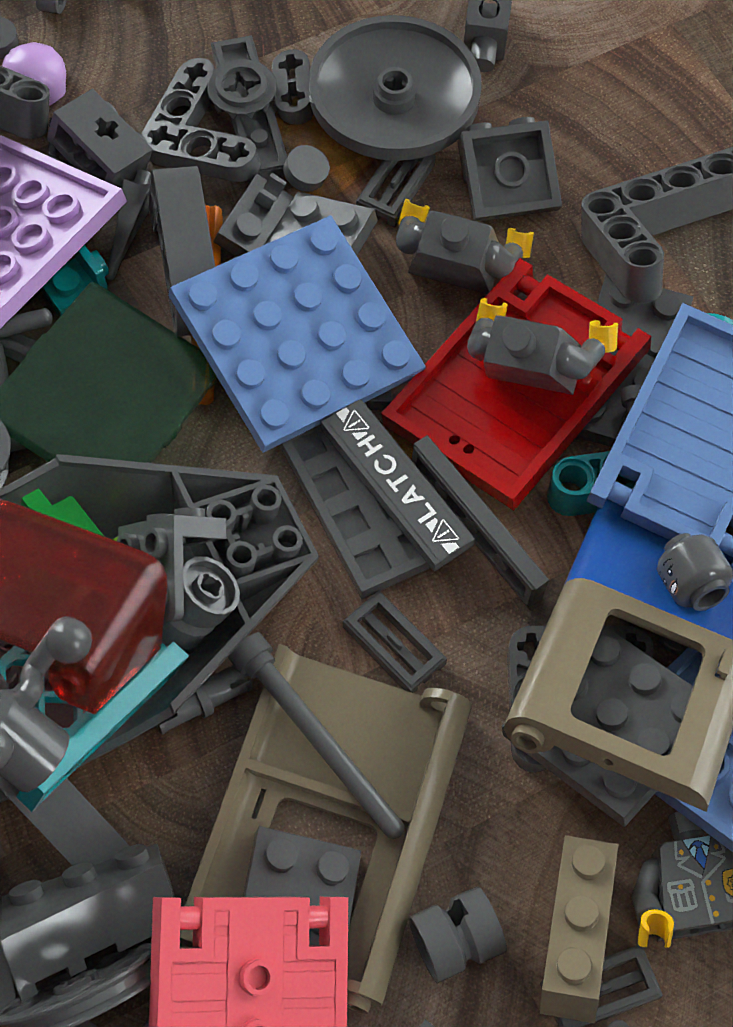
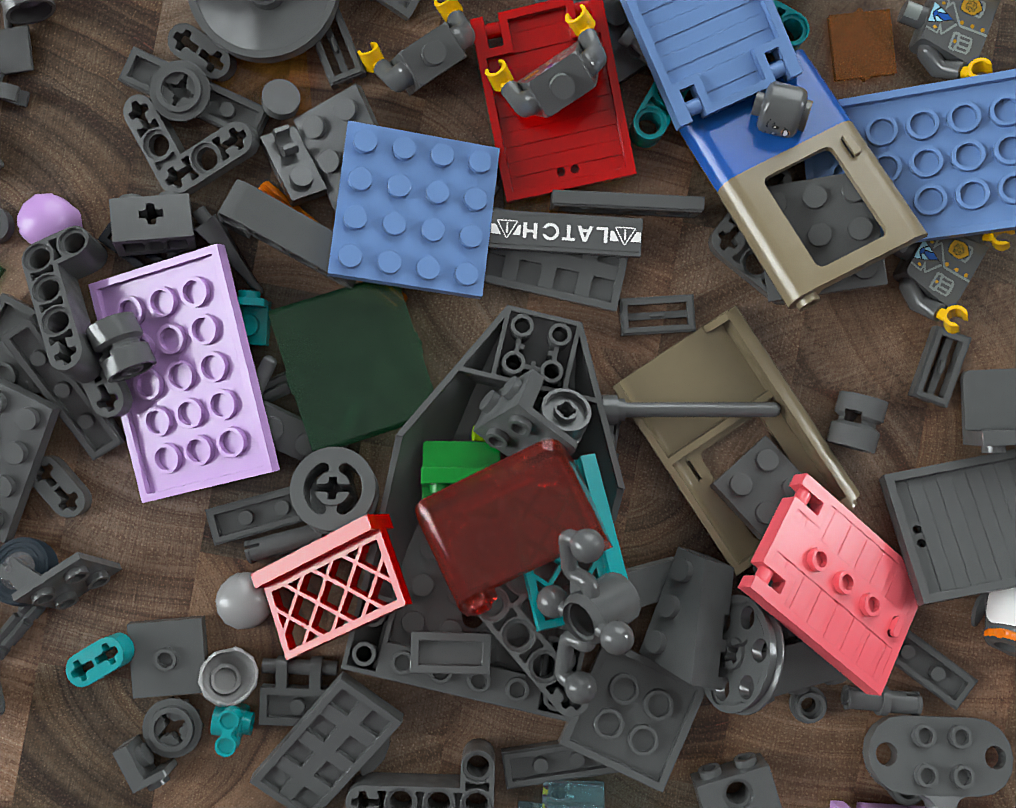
camera: 50 degrees left, 25 degrees up
(579, 929) = (925, 366): dark tan arch -> none

